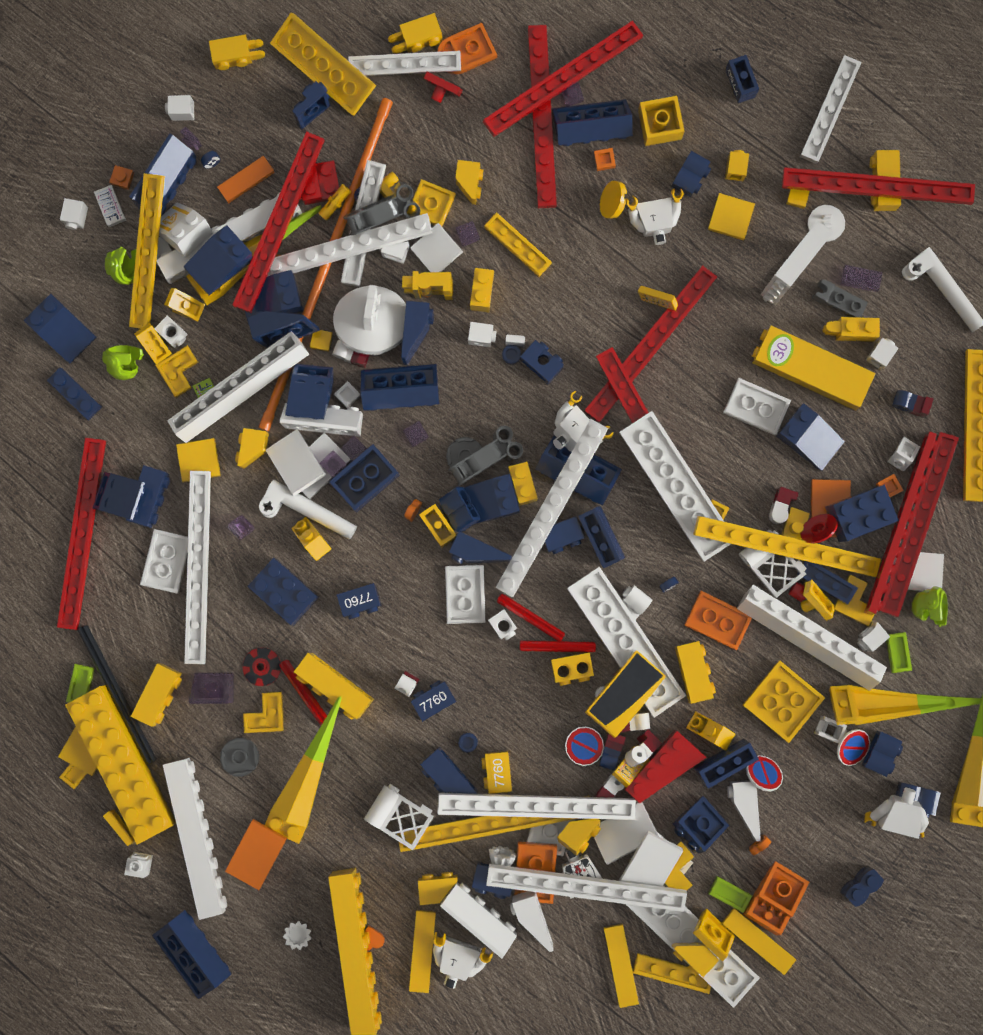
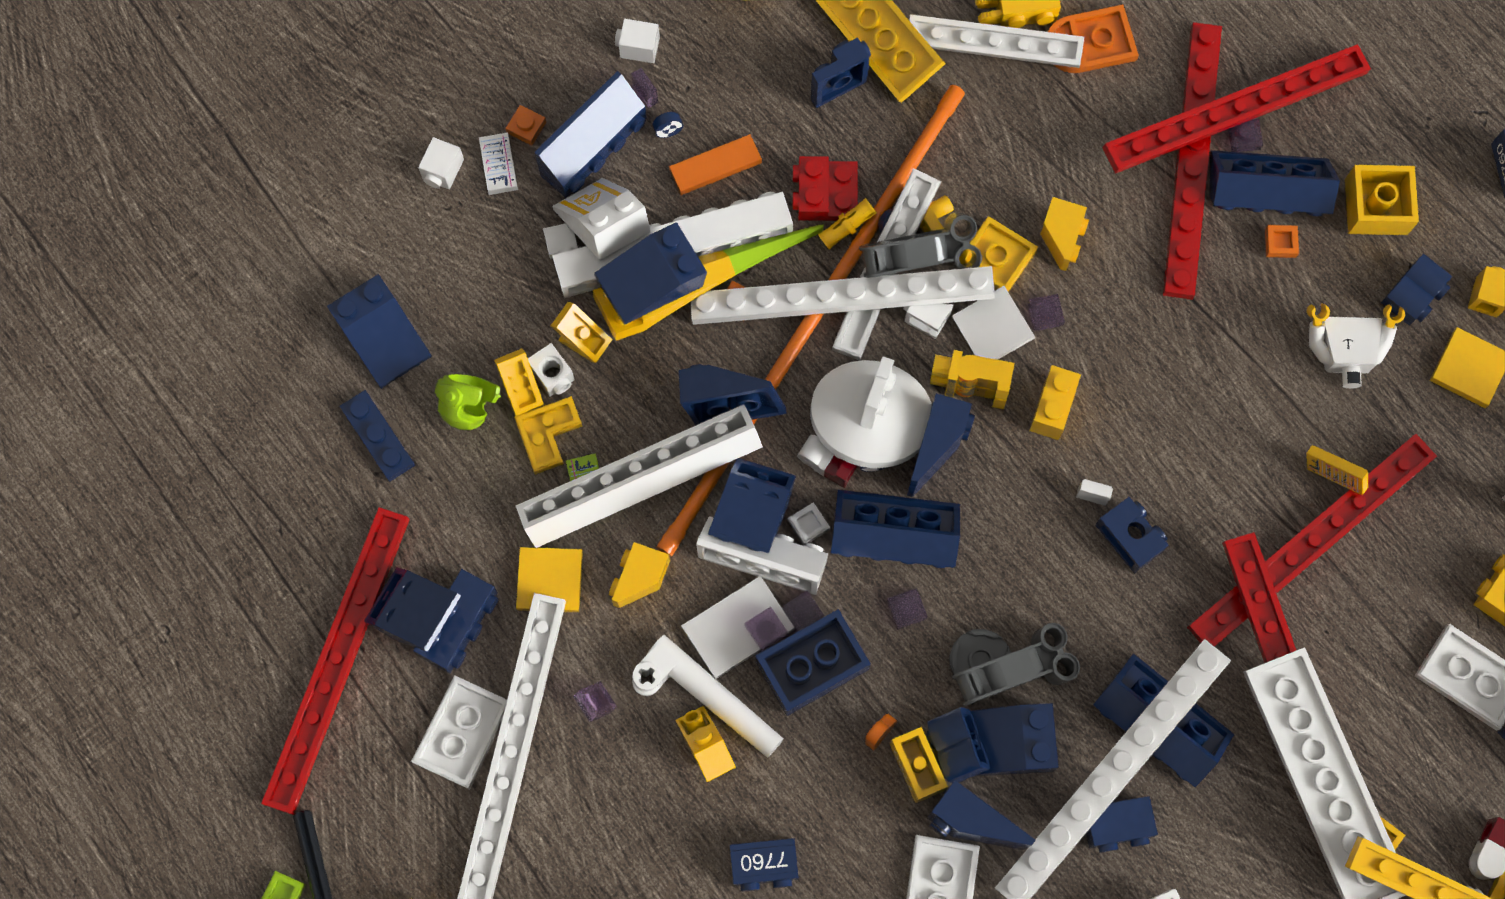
camera: 10 degrees right, 10 degrees down
(120, 266) = (497, 259): lime helmet -> none
(146, 250) = (541, 239): yellow plate -> none
(278, 222) = (754, 237): red plate -> none
(278, 295) = (722, 341): dark blue slope -> none
(283, 591) = (642, 821): dark blue brick -> none
(295, 462) = (705, 614): white tile -> none
(321, 340) = (784, 431): yellow tile -> none
(441, 87) = (1045, 85): red tile -> none
(481, 334) = (1042, 472): white brick -> none
(511, 354) = (1083, 513): dark blue tile -> none
(517, 244) = (1122, 344): yellow tile -> none
(523, 483) = (1070, 723): yellow brick -> none
(570, 425) = (1165, 645): white torso -> none
(601, 537) = (1186, 840): dark blue brick -> none
(612, 199) = (1287, 304): yellow tile -> none

